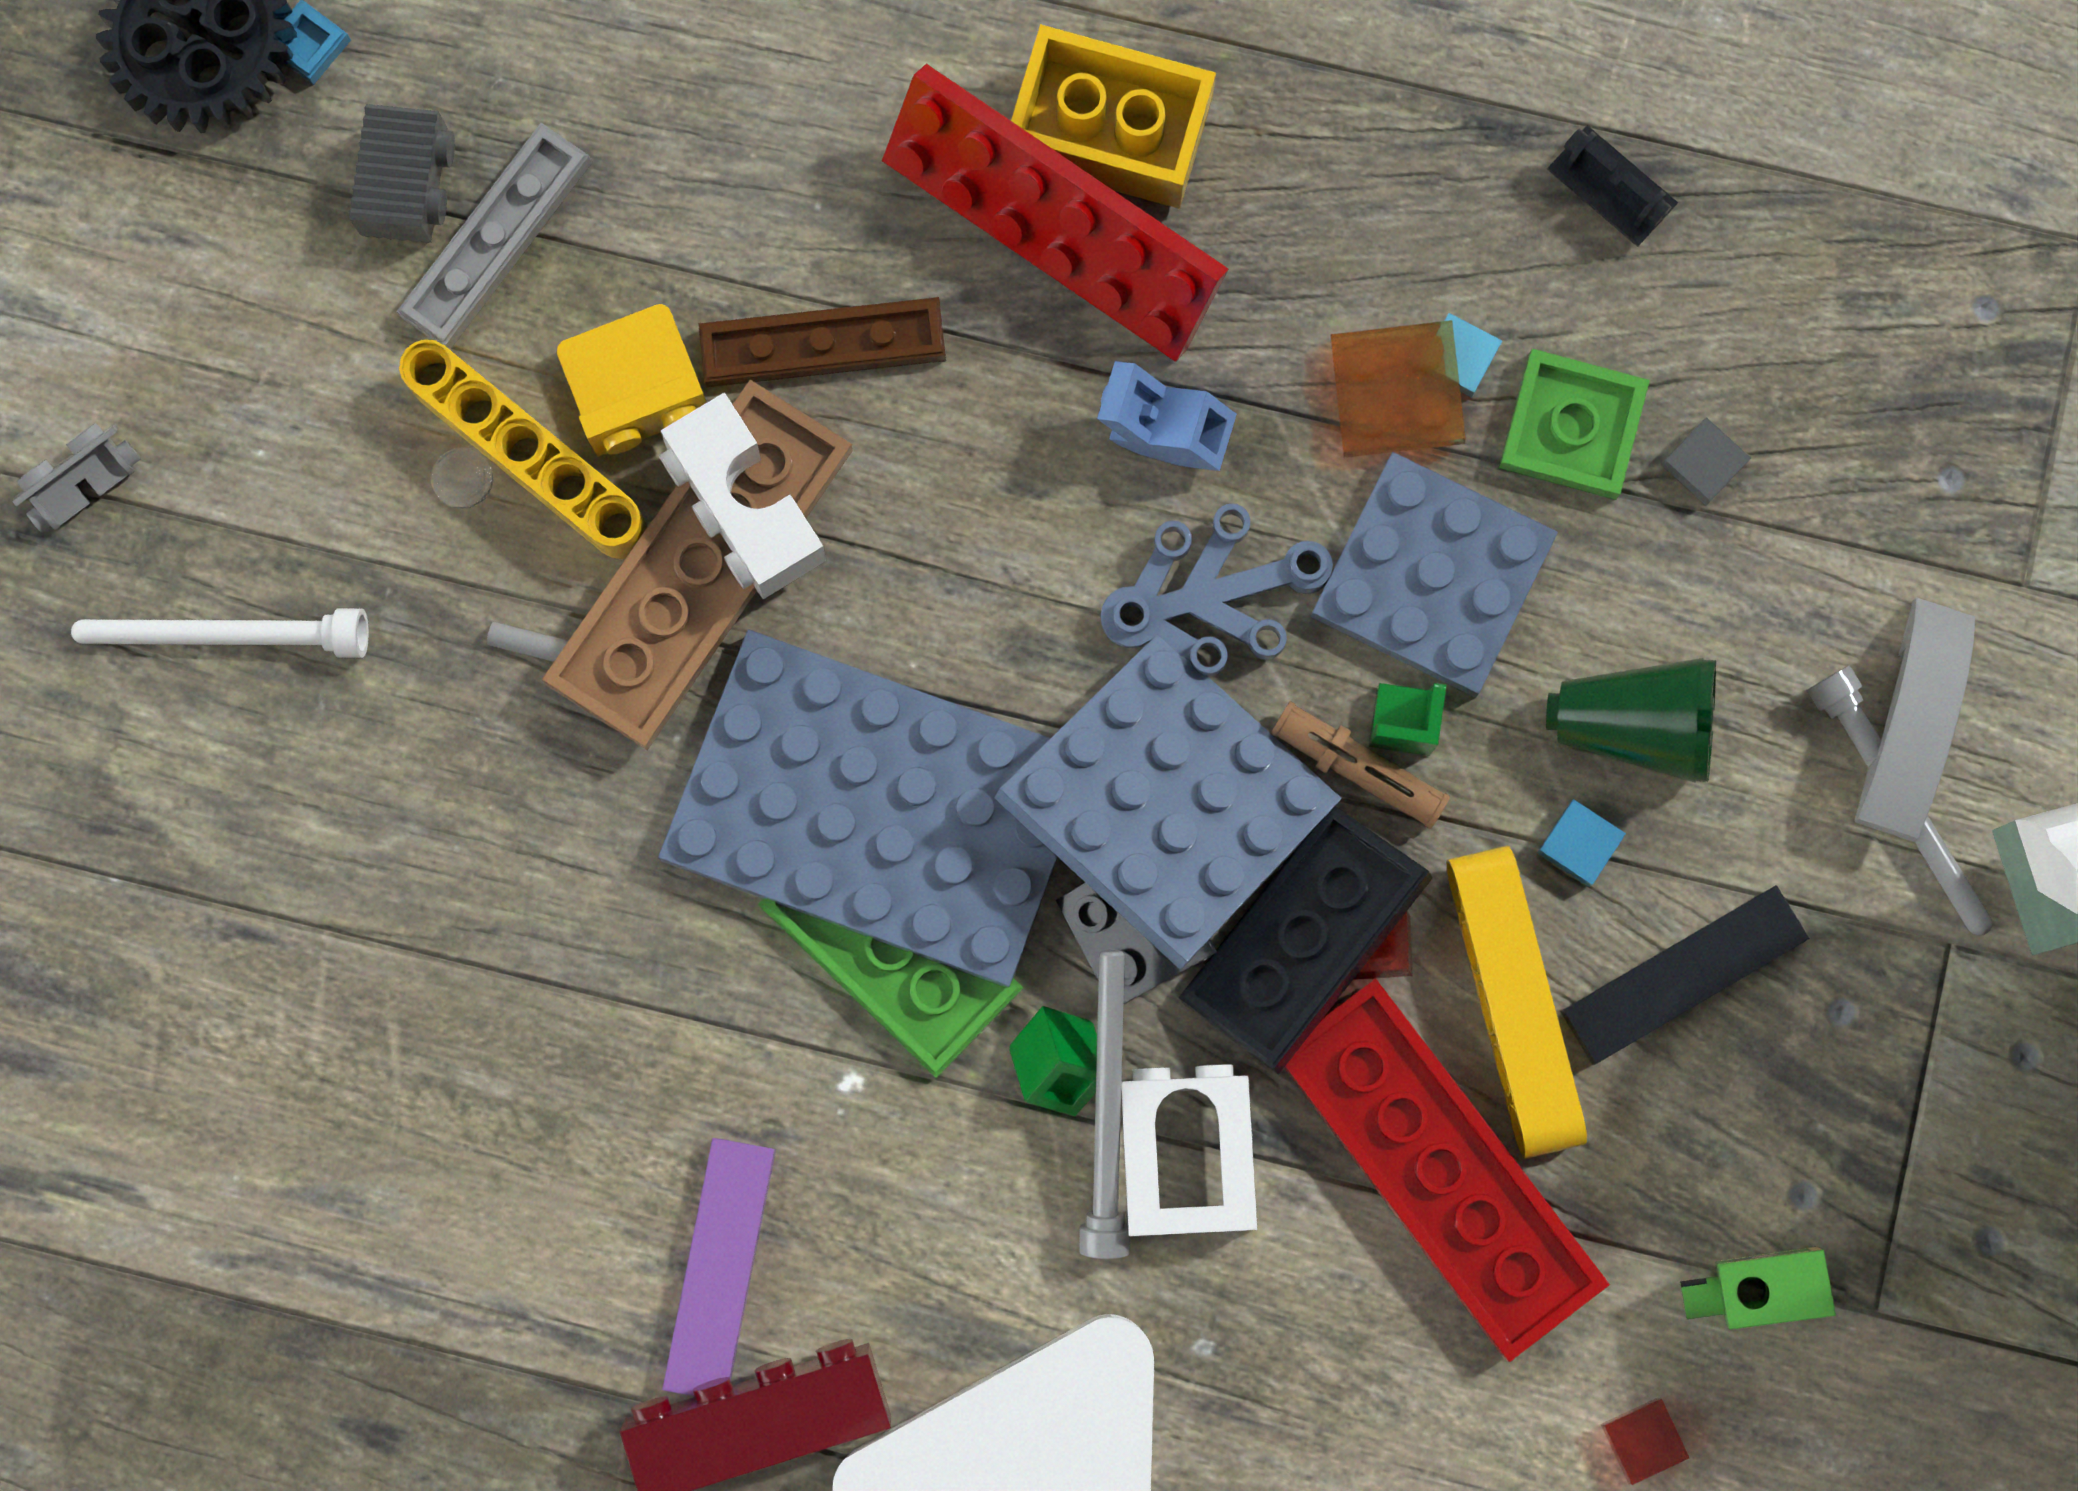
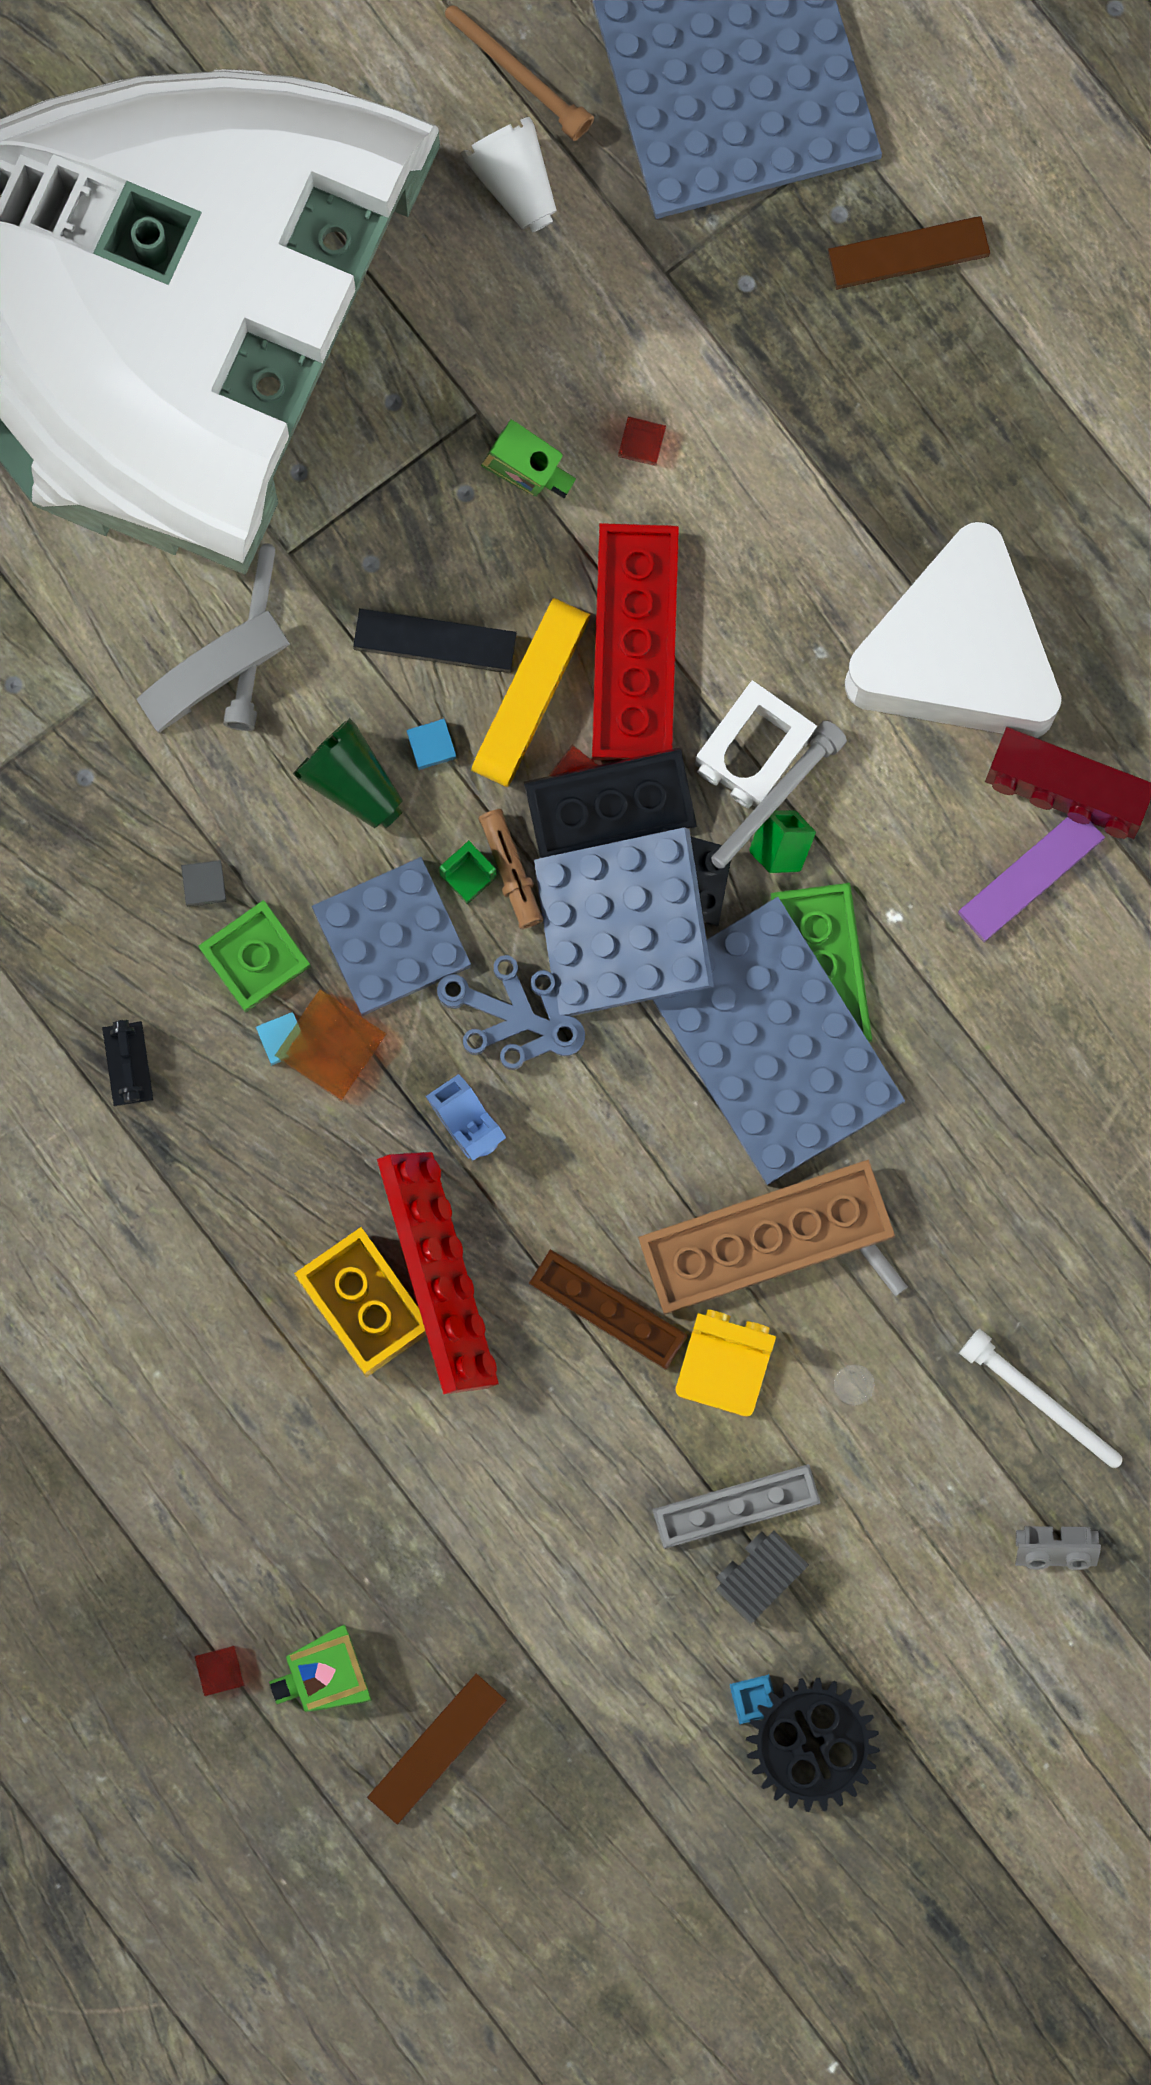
camera: 145 degrees left, 0 degrees up
(503, 429) = (813, 1350): yellow beam -> none
(766, 543) = (719, 1281): white arch -> none

